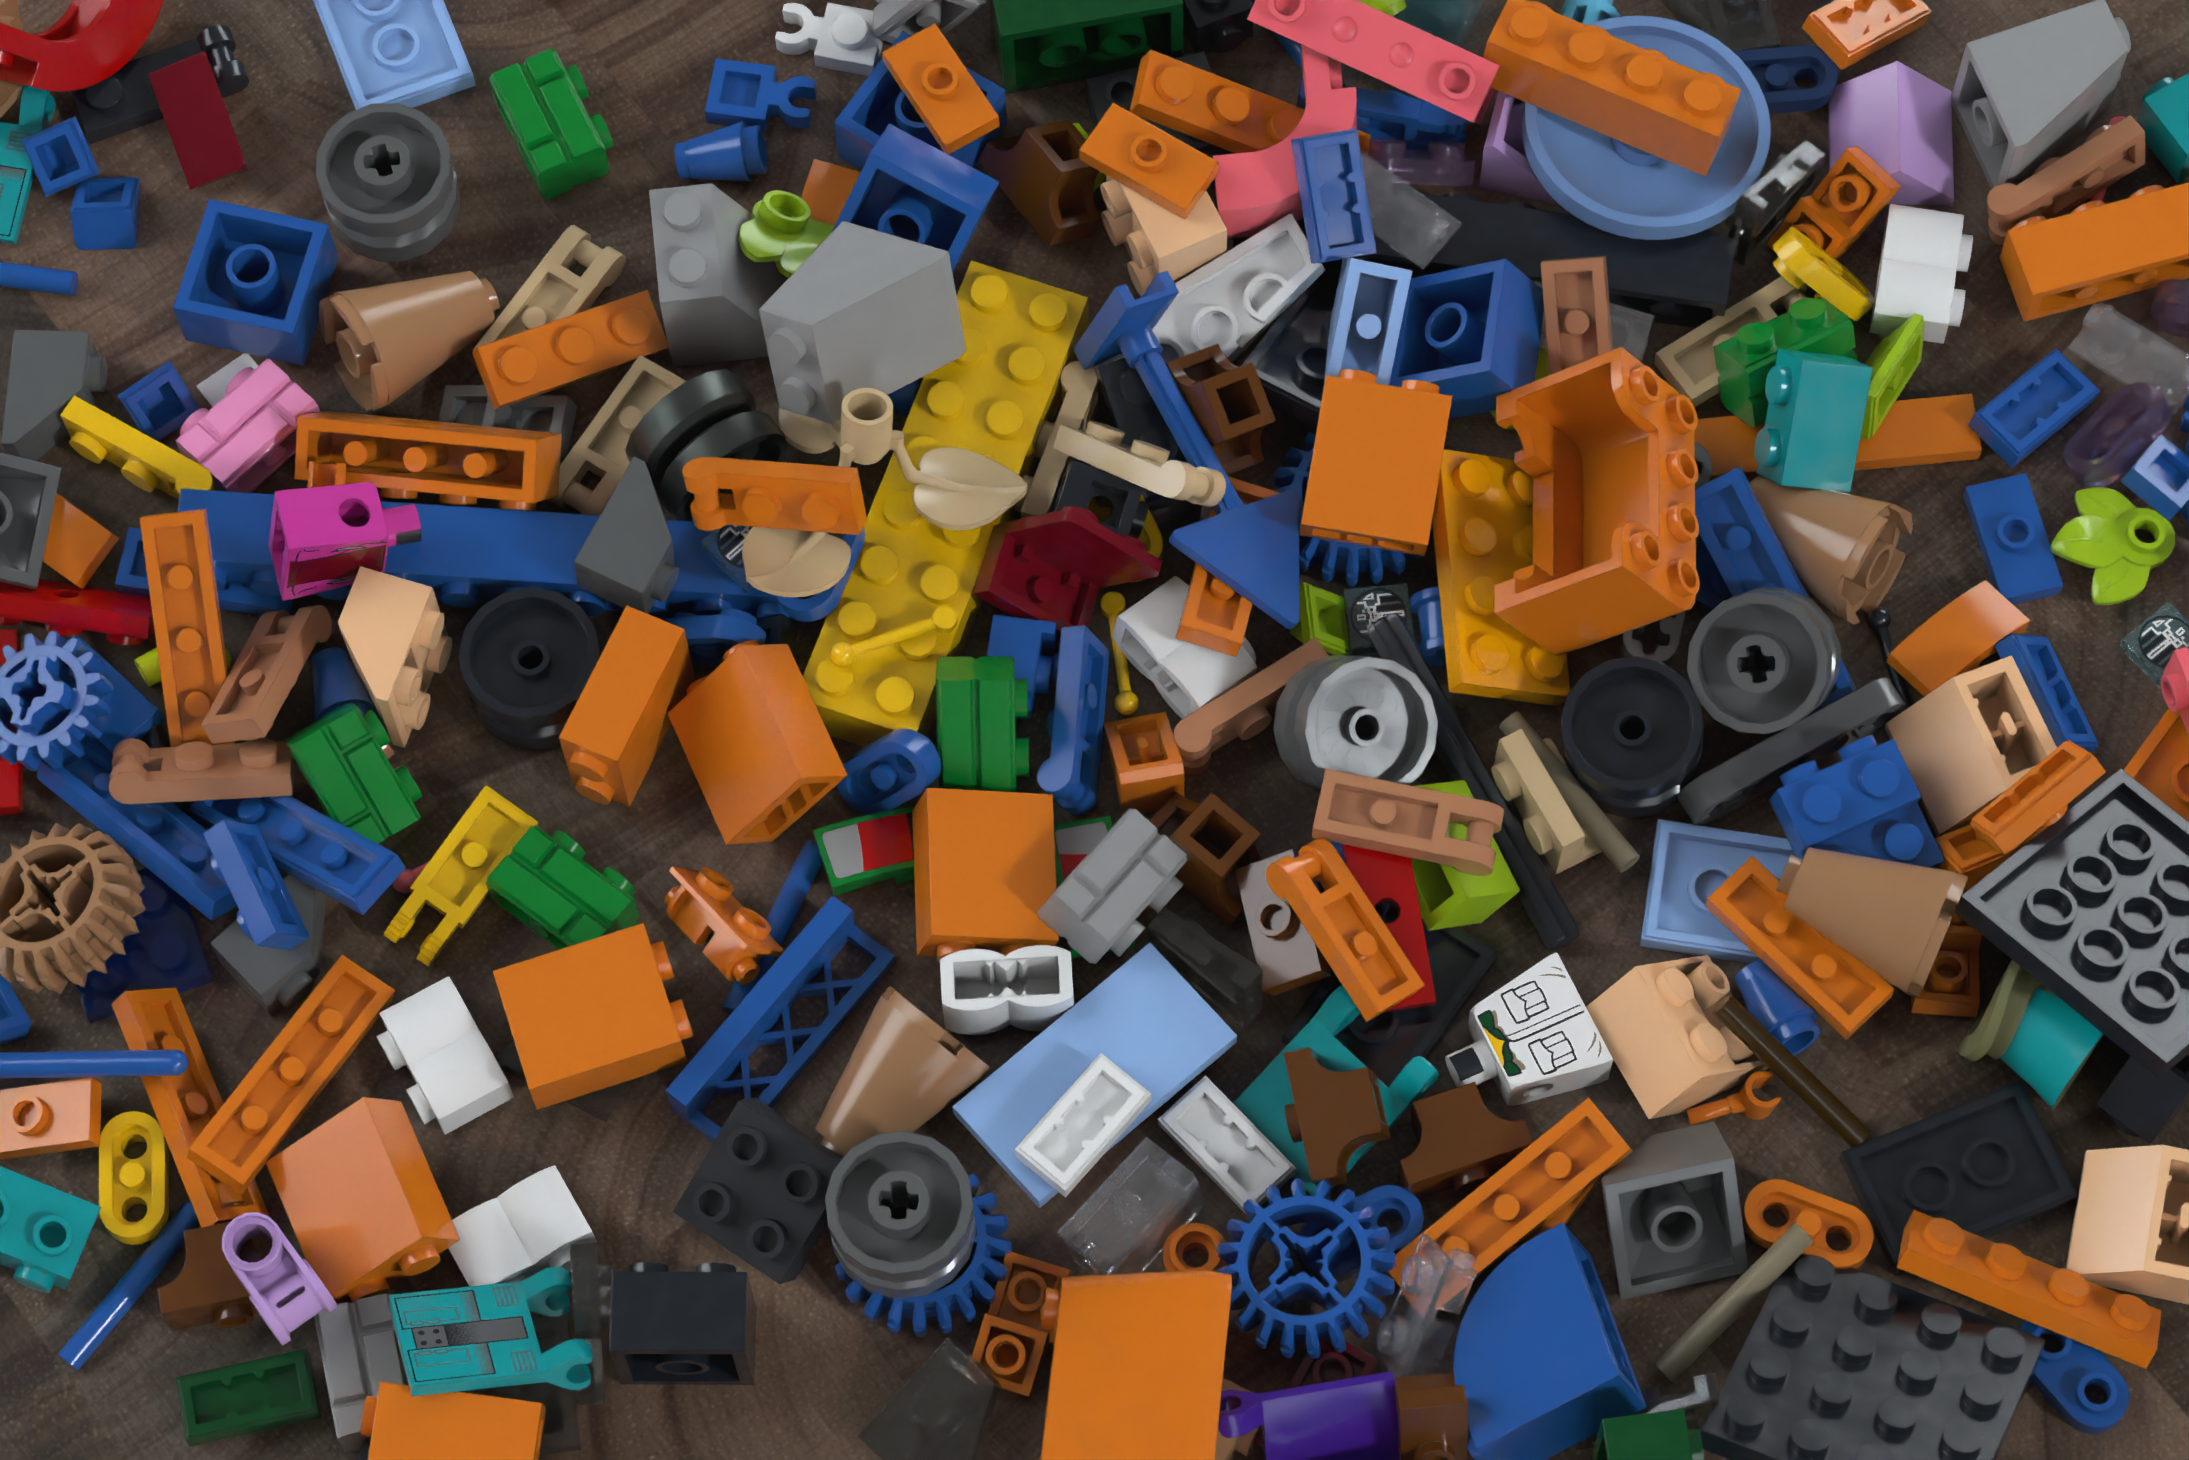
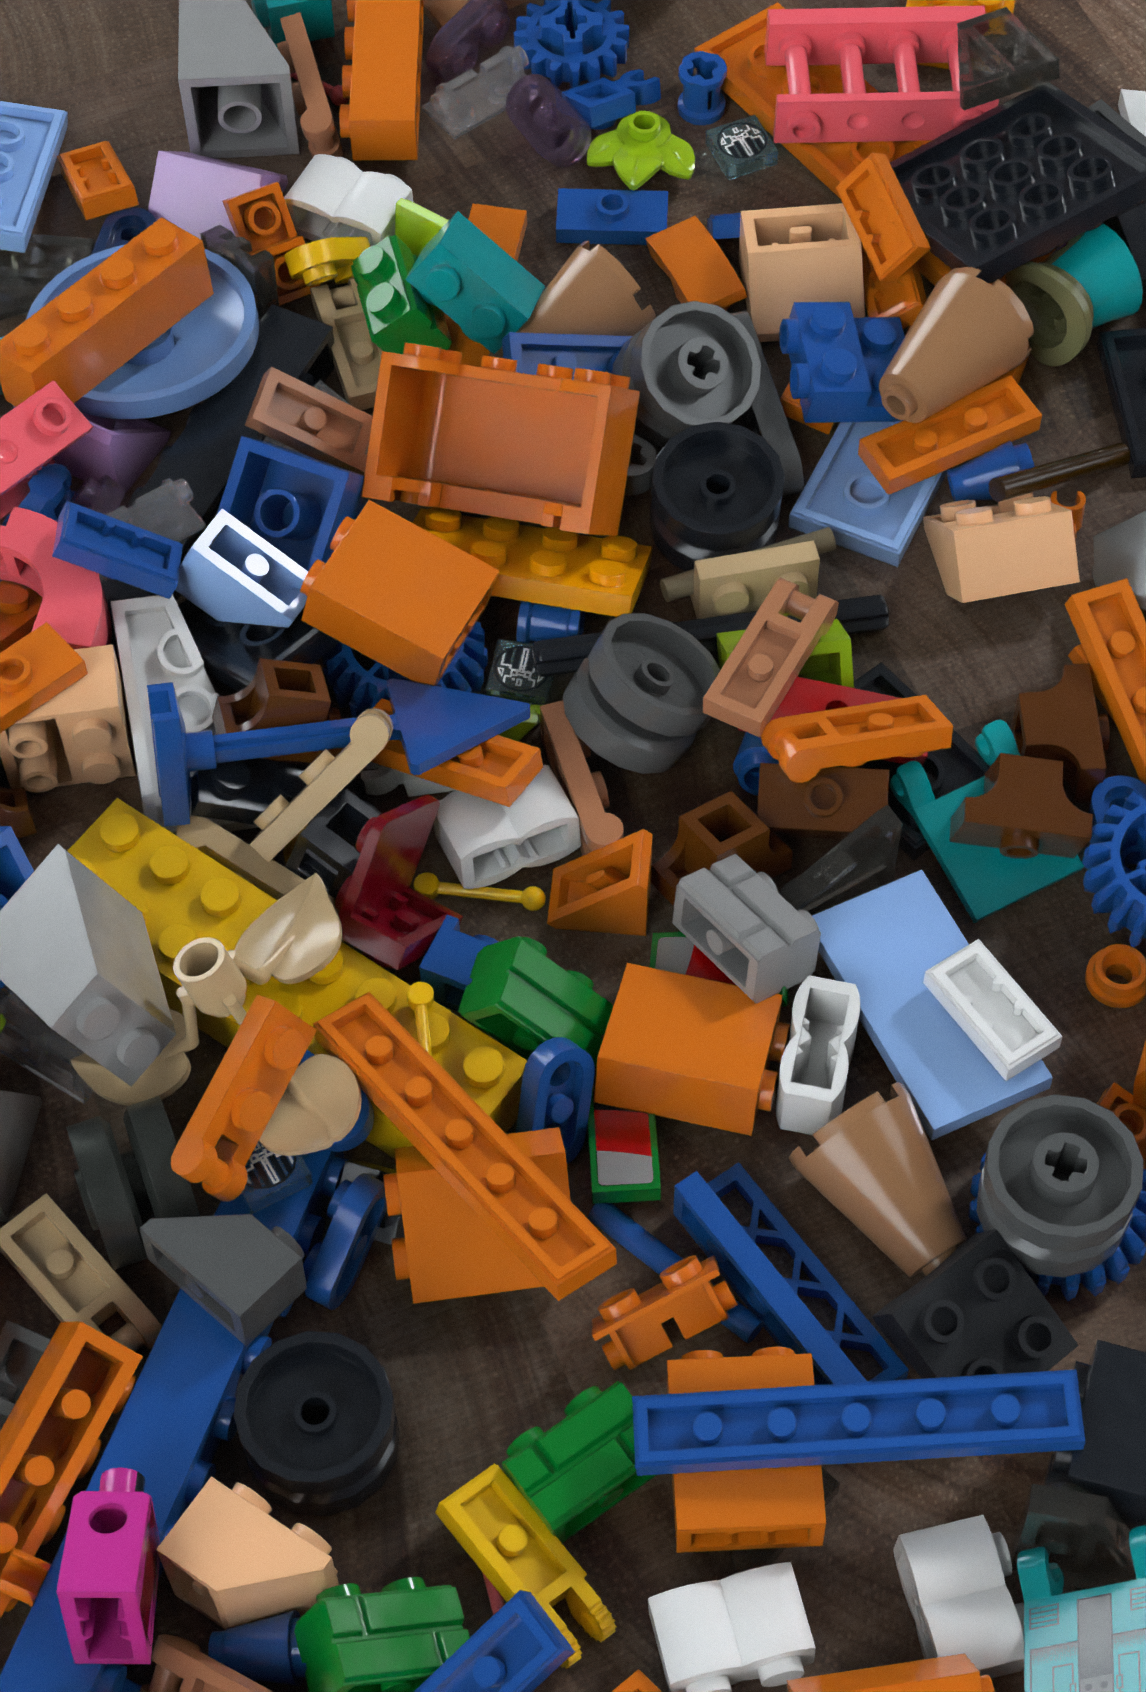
camera: 75 degrees left, 10 degrees down
(616, 1089) = (857, 1422): none -> blue tile
(626, 707) = (422, 1341): orange brick -> none
(782, 688) = (467, 1147): none -> orange tile
(1076, 721) = (560, 937): blue plate -> none
(1133, 1212) = (1079, 1008): clear hinge -> none
(1225, 1144) = (1024, 916): white plate -> none
(1533, 1038) = (972, 650): white torso -> none
(2034, 408) = (502, 167): blue plate -> none

